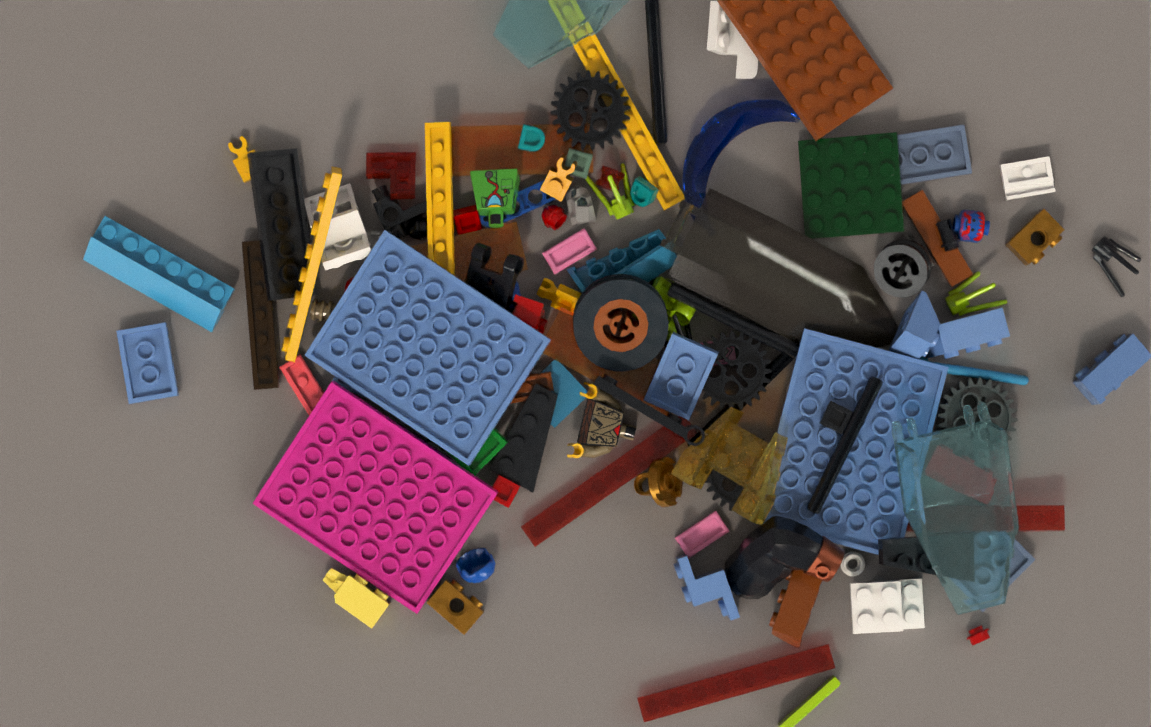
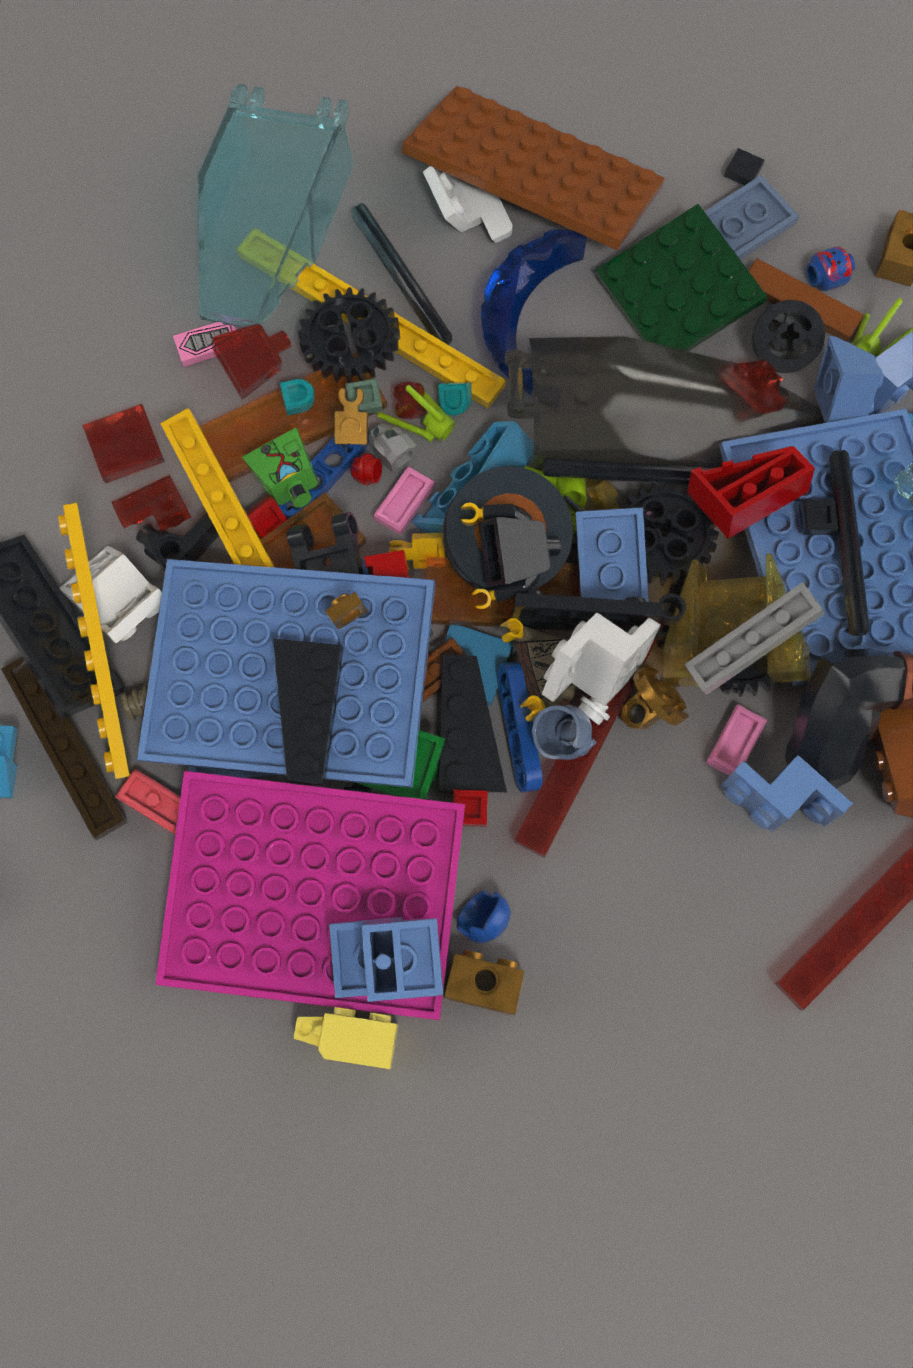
camera: 25 degrees left, 15 degrees down
(394, 108) = (123, 443): none -> clear red plate
(400, 564) = (386, 958): none -> medium blue bracket
(418, 228) = (213, 551): black plate -> none
(430, 377) = (307, 699): none -> black wing
(482, 331) = (346, 610): none -> pearl gold plate
(488, 56) = (197, 343): none -> tile
(513, 90) = (250, 356): none -> clear red torso
(560, 462) = (519, 731): none -> blue beam
(584, 477) = (562, 732): none -> sand blue helmet
(611, 345) = (512, 549): none -> black torso
(615, 470) = (594, 709): none -> white plate
(631, 443) = (599, 658): none -> white bracket
(706, 323) = (602, 494): none -> clear yellow plate
(733, 485) = (754, 638): none -> light grey plate
(796, 379) = (750, 489): none -> red wedge
(849, 293) = (756, 384): none -> clear red plate
(947, 235) = (814, 284): black pin -> none
(959, 108) = (744, 167): none -> black tile
(1027, 178) = (858, 198): white plate -> none

